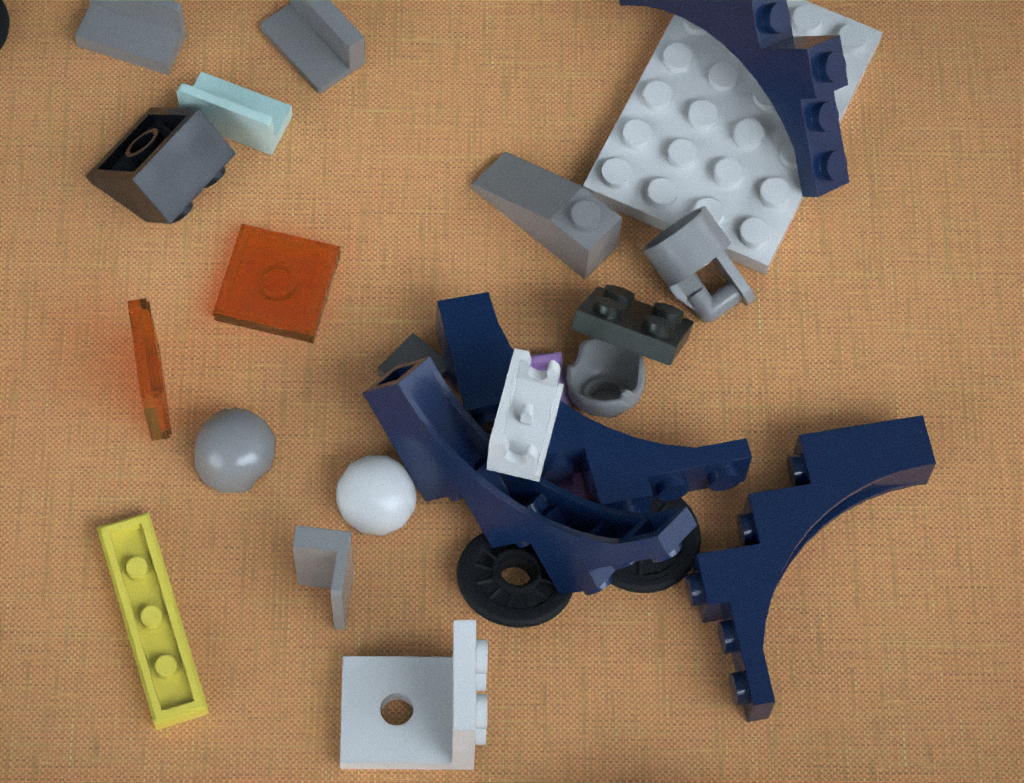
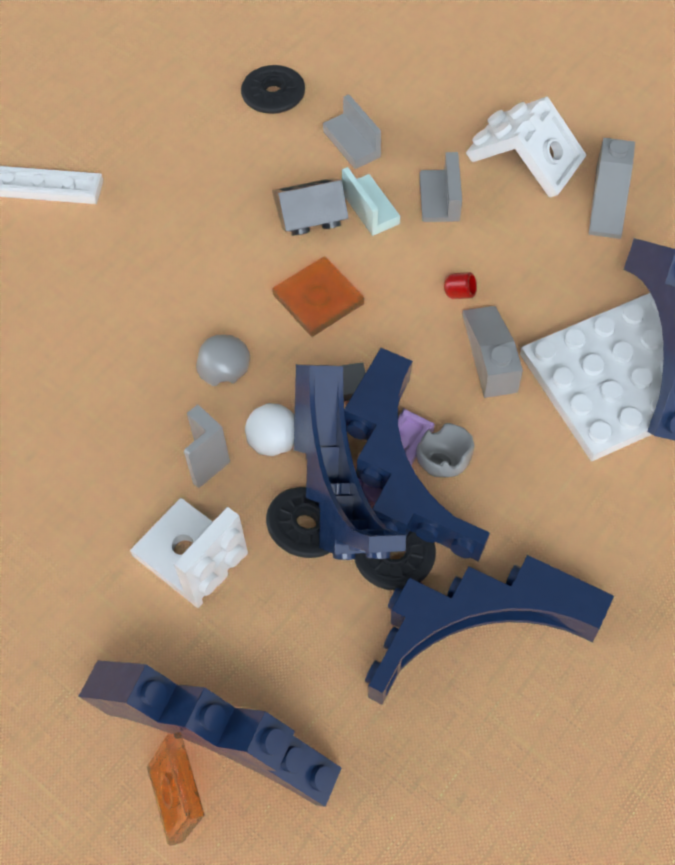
camera: 45 degrees right, 5 degrees down
(149, 369) = (209, 289): clear orange tile -> none
(152, 621) = (109, 416): light yellow tile -> none
(442, 153) = (460, 285): none -> red piece
(525, 418) = (367, 431): white hinge -> none
(632, 325) = (482, 432): pearl dark grey plate -> none
(685, 250) = (544, 412): light grey piece -> none

